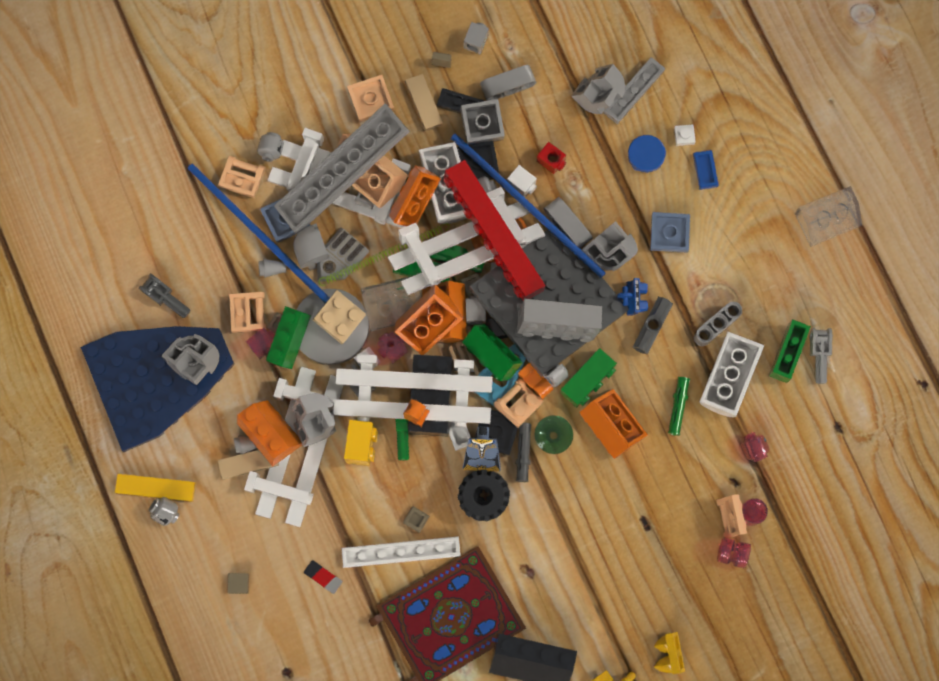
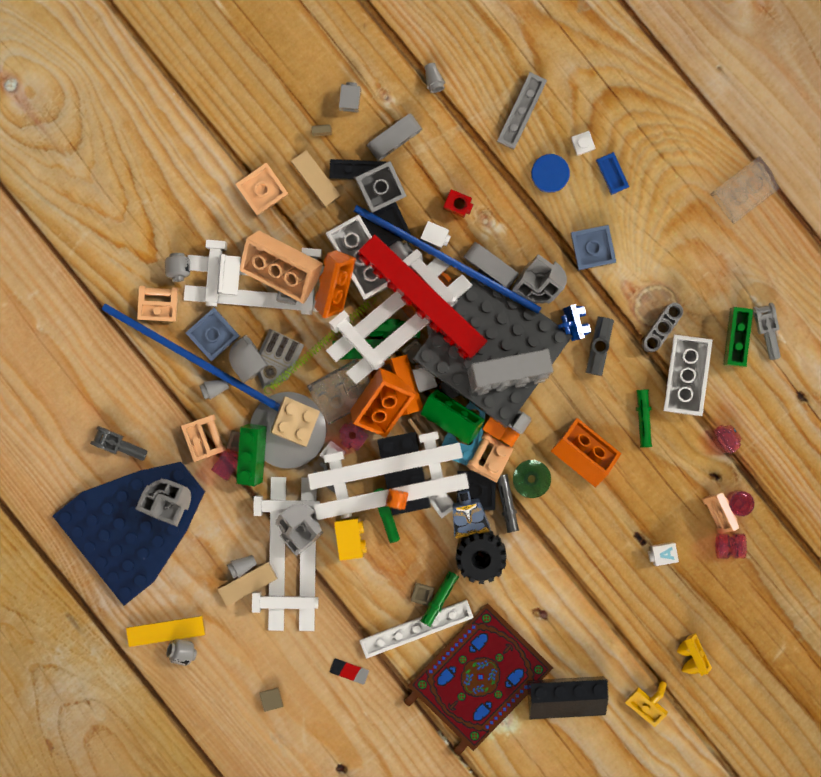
camera: 10 degrees left, 10 degrees up
(268, 431) = (259, 550): orange slope -> none
(341, 168) = (256, 275): light grey plate -> none
(431, 527) = (437, 602): none -> green pin
(559, 41) = (434, 80): none -> light grey cone
(589, 378) = (551, 415): green brick -> none
(600, 89) = (488, 121): light grey brick -> none
(664, 543) = (663, 554): none -> white brick

